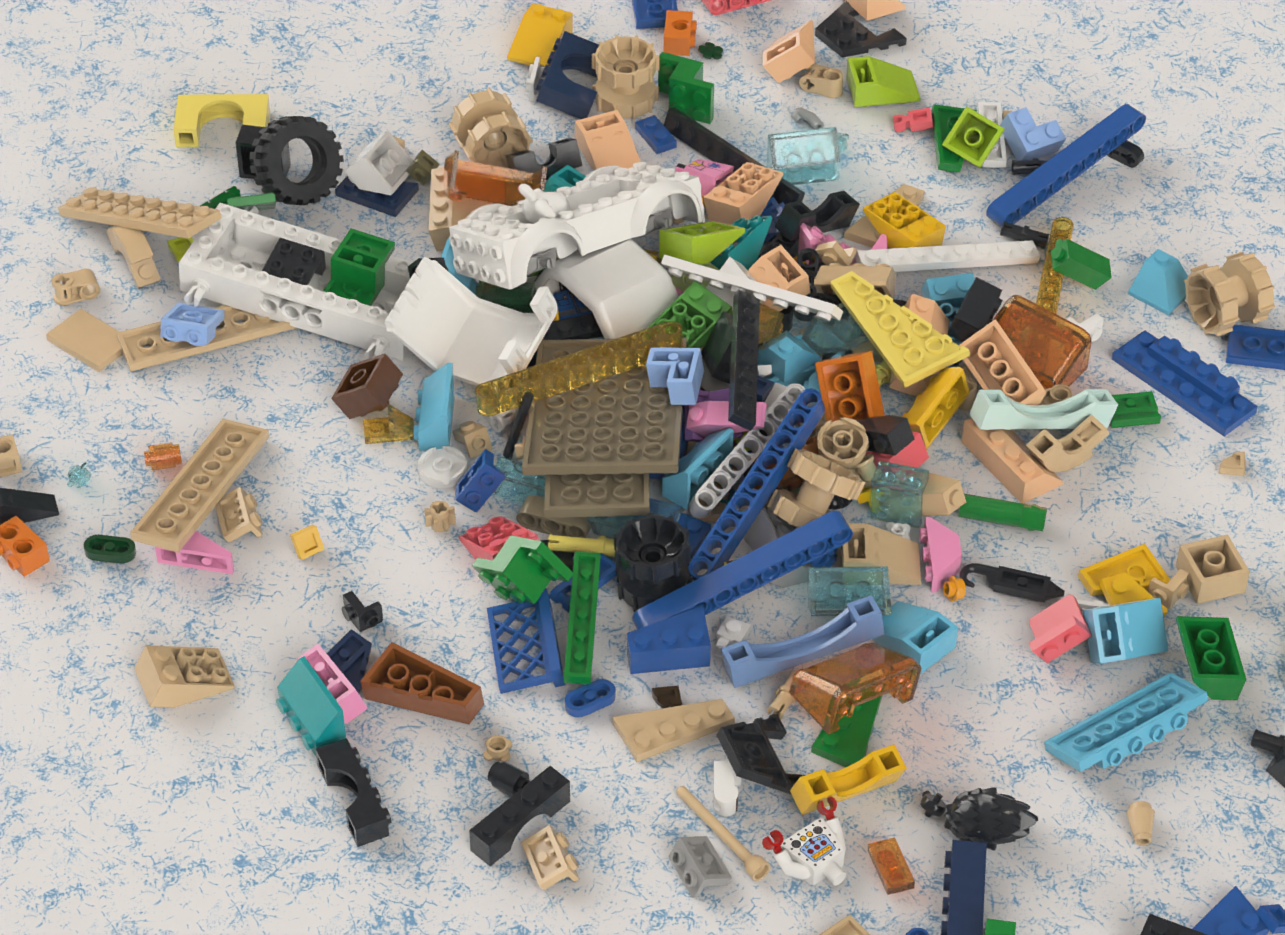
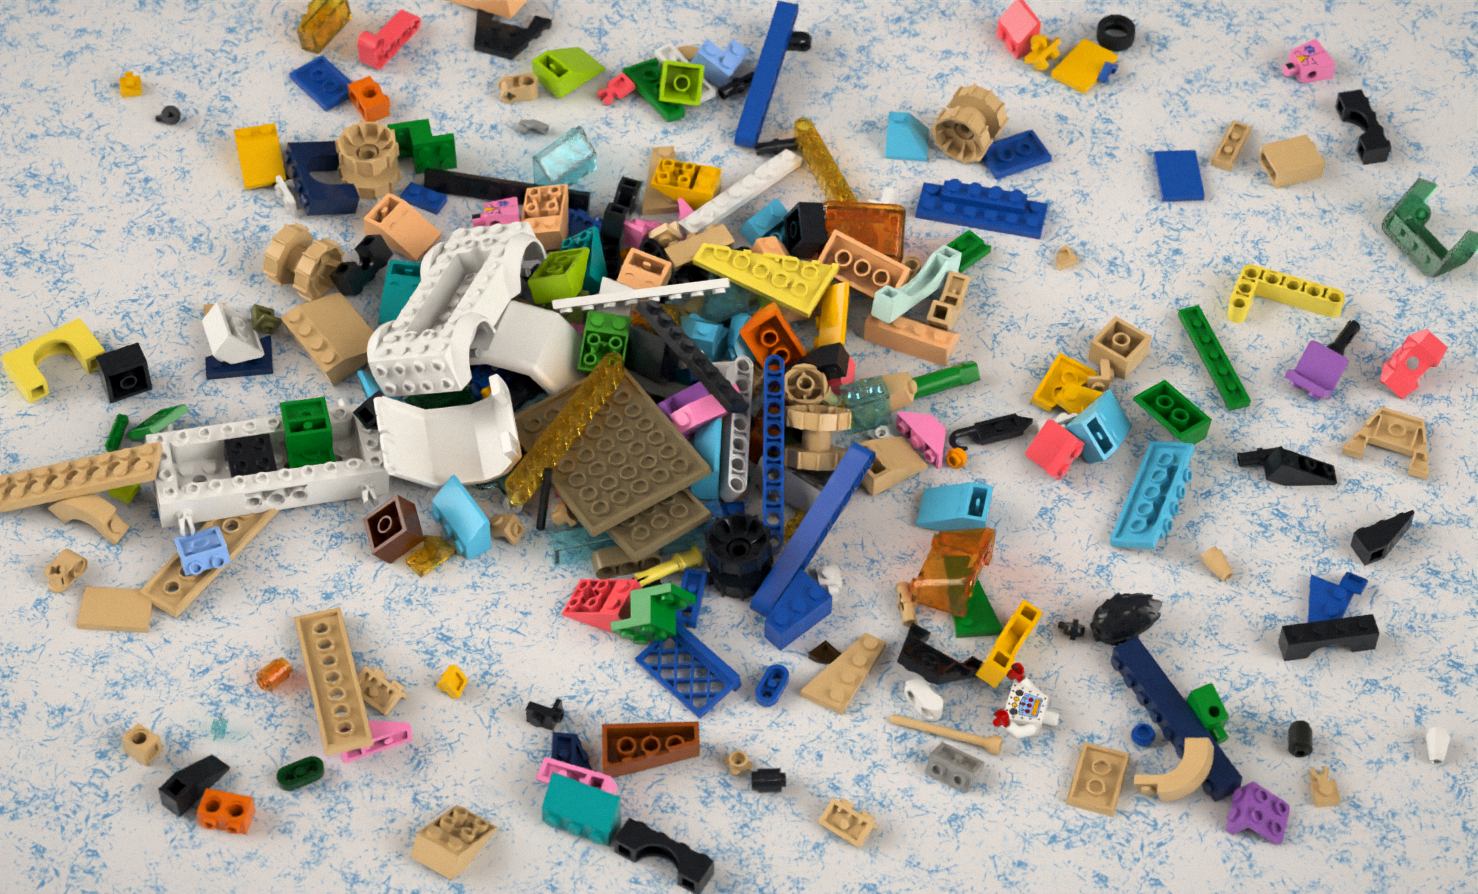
camera: 35 degrees left, 5 degrees up
(324, 154) = (150, 371): black tyre -> none
(440, 516) = (537, 605): tan gear -> none
(442, 467) = (500, 564): white tile -> none
(479, 482) = (547, 560): blue bracket -> none
(487, 182) = (353, 304): clear orange windscreen -> none
(498, 830) = (801, 803): black arch -> none
(542, 204) = (435, 307): white piece -> none
(582, 618) = (721, 628): green plate -> none
(678, 370) = (650, 390): light blue brick -> none
(711, 51) = (405, 103): dark green plant -> none
(790, 53) = (477, 73): light nougat slope -> none
(834, 587) = (891, 502): clear light blue slope -> none
(855, 625) = (867, 591): medium blue arch -> none
(891, 866) = (1082, 690): clear orange plate -> none
(1080, 263) = (844, 151): green brick -> none

